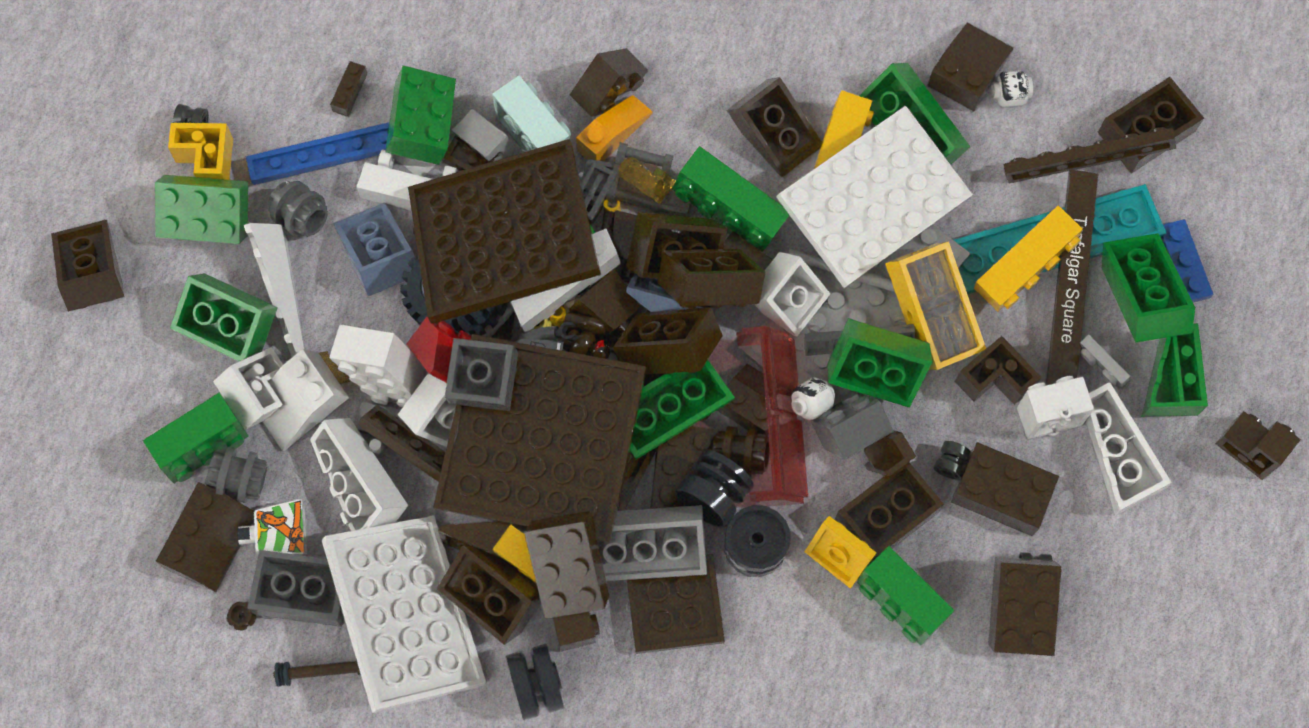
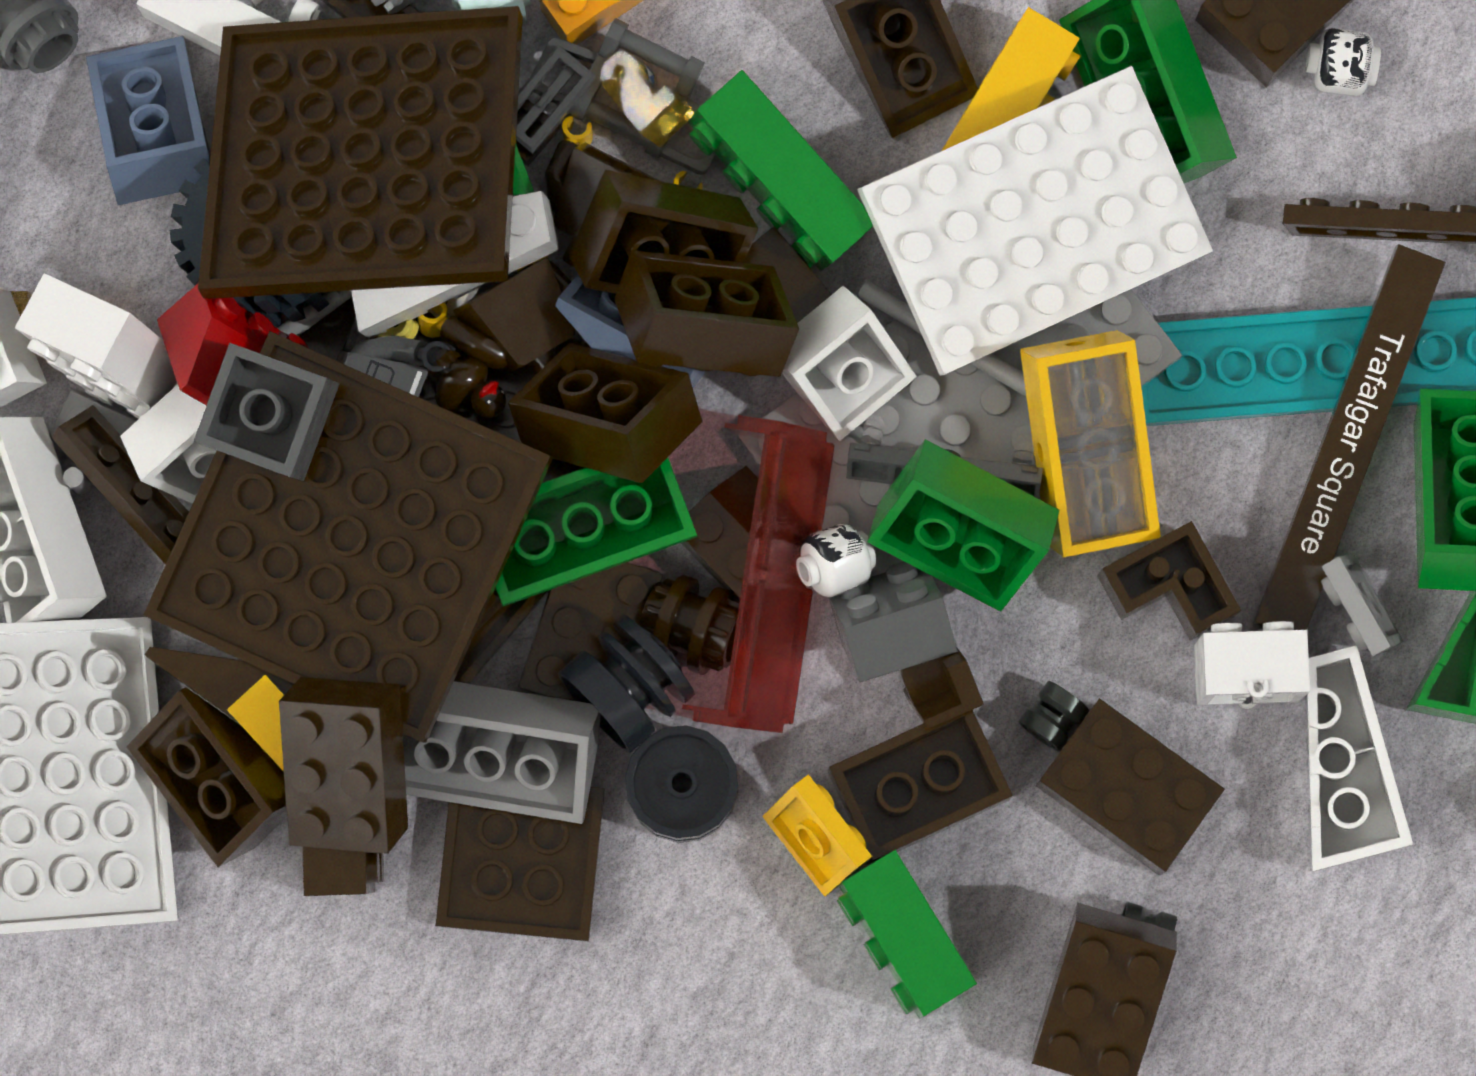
camera: 15 degrees right, 10 degrees up
(535, 681) = (247, 940): black wheel -> none
(1028, 258) = (1277, 392): yellow brick -> none

